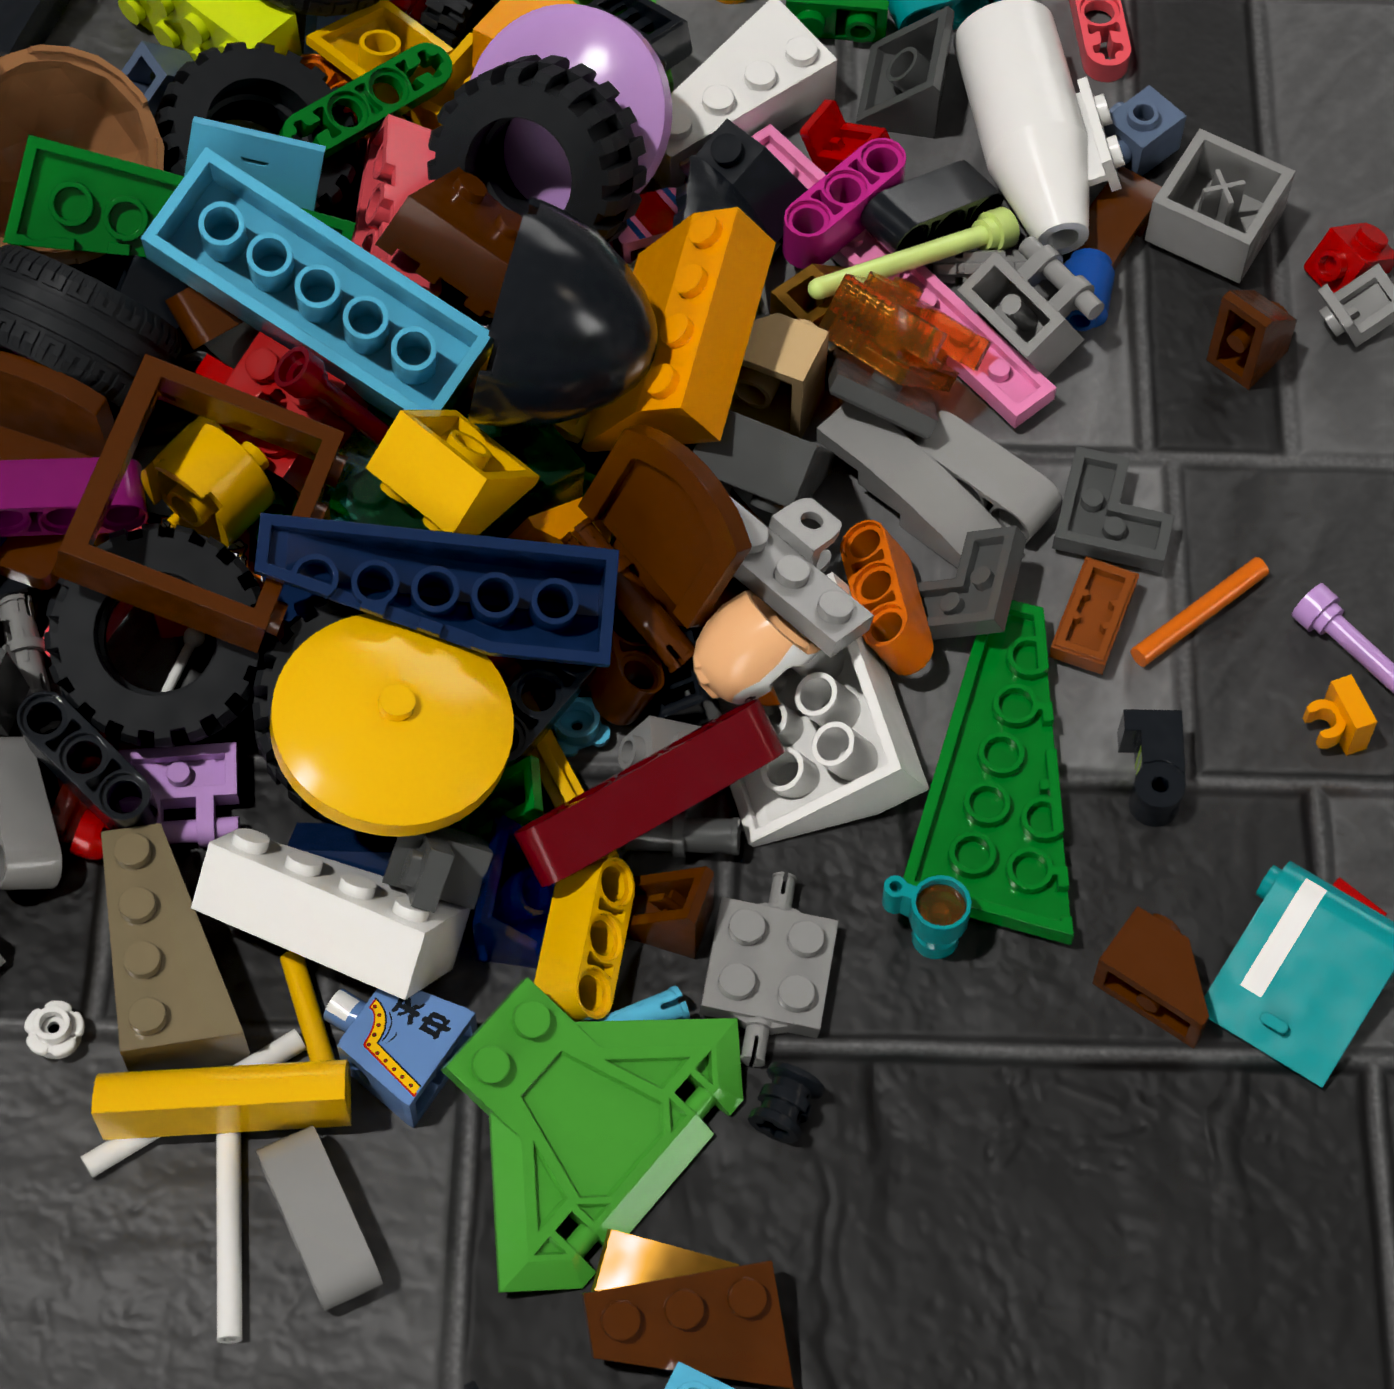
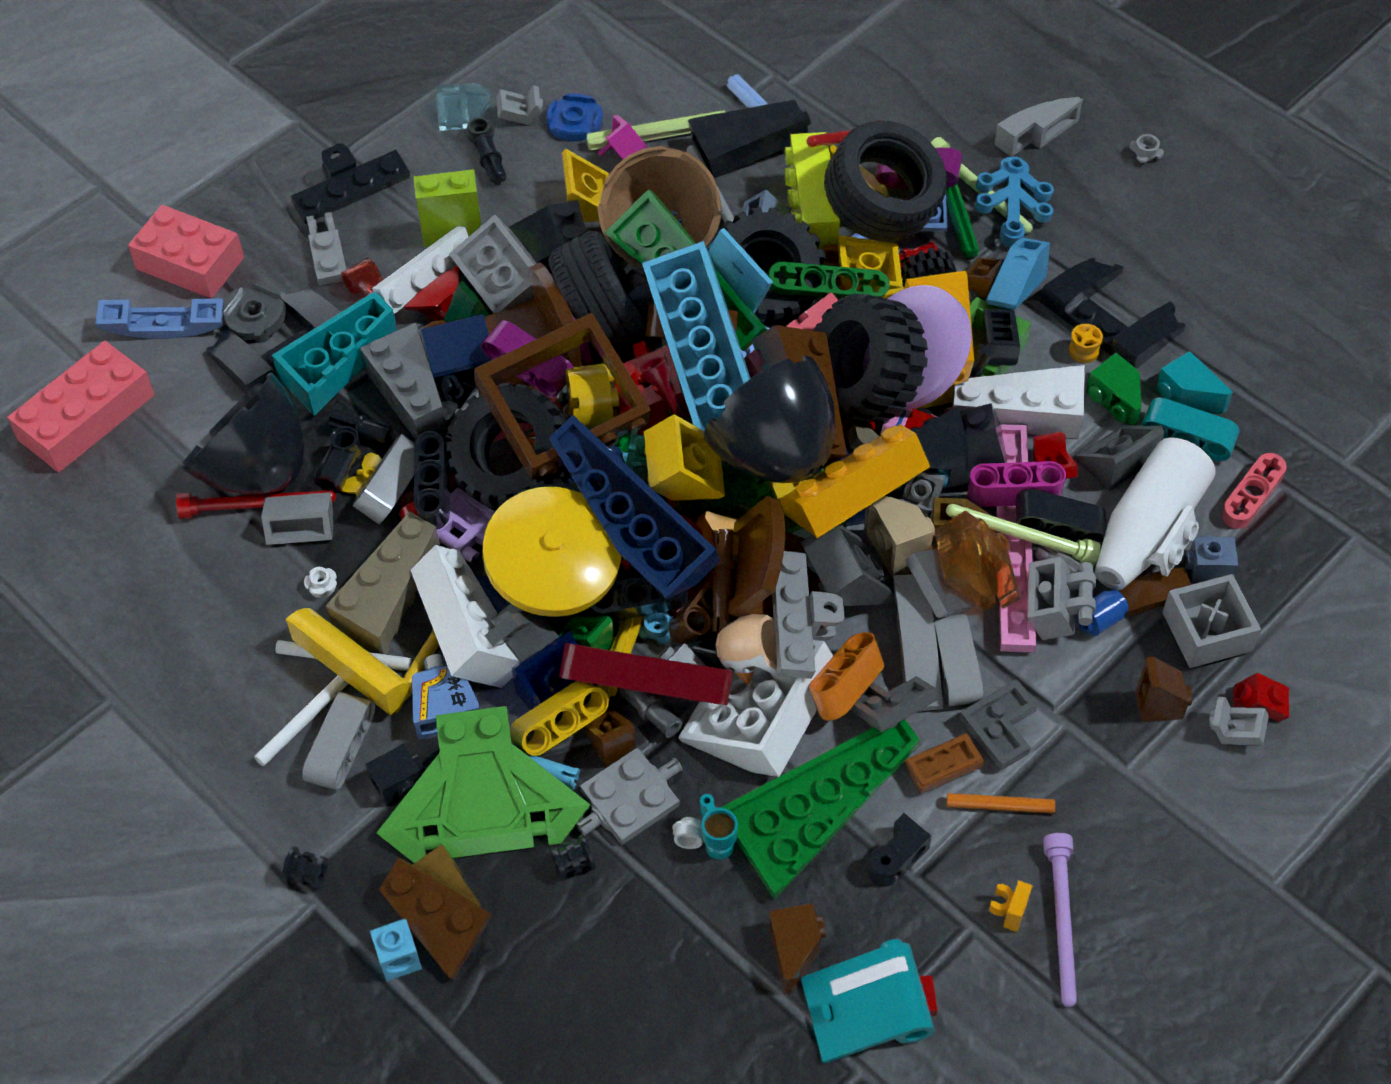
camera: 45 degrees right, 5 degrees down
(447, 1195) = (394, 774): none -> black brick
(891, 949) = (688, 833): none -> white plate

